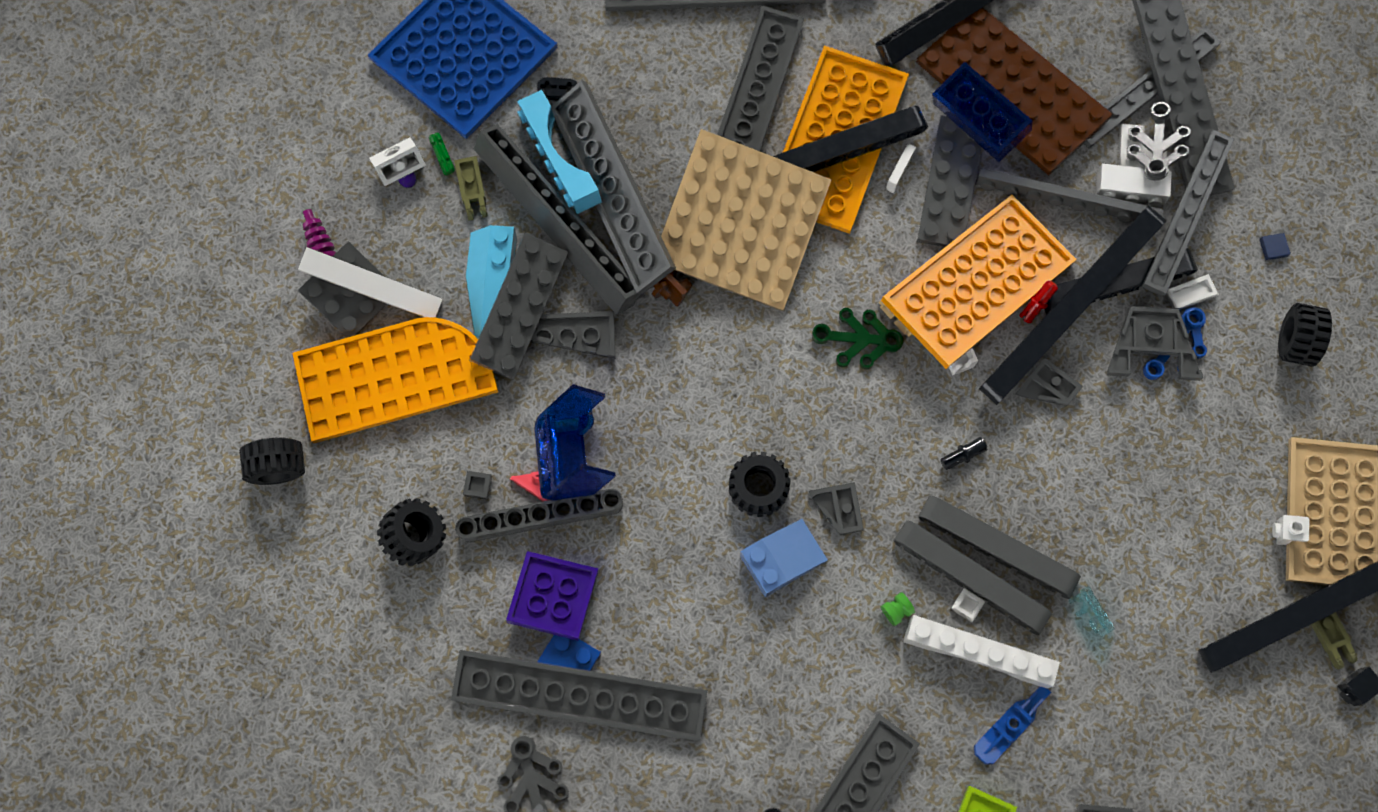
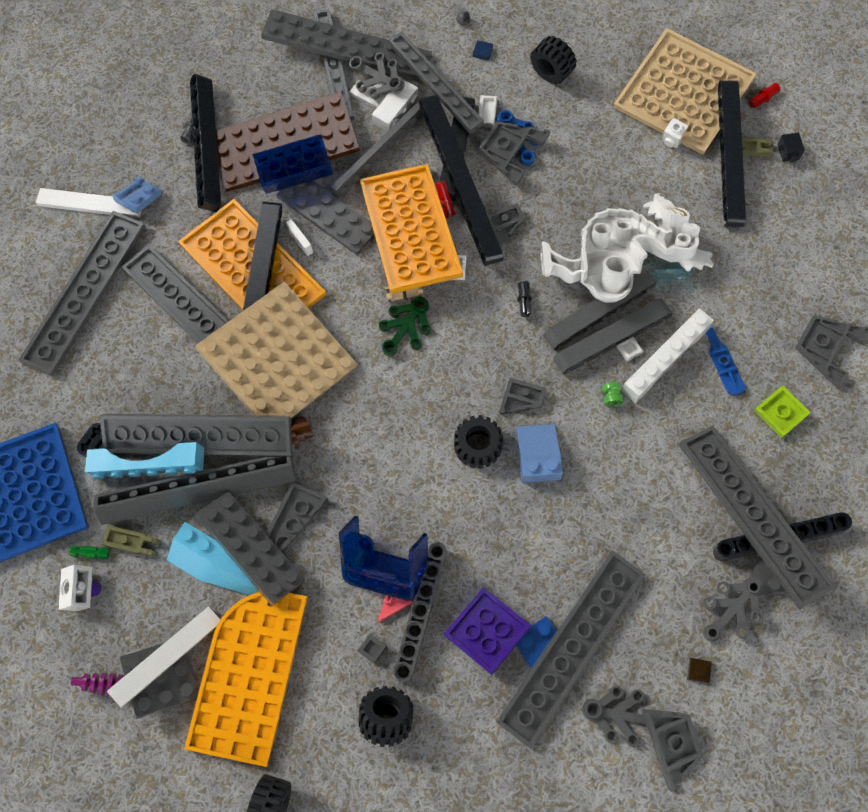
camera: 60 degrees left, 5 degrees down
(1089, 521) = (617, 244): none -> white animal
(1310, 199) = (463, 18): none -> dark grey hinge

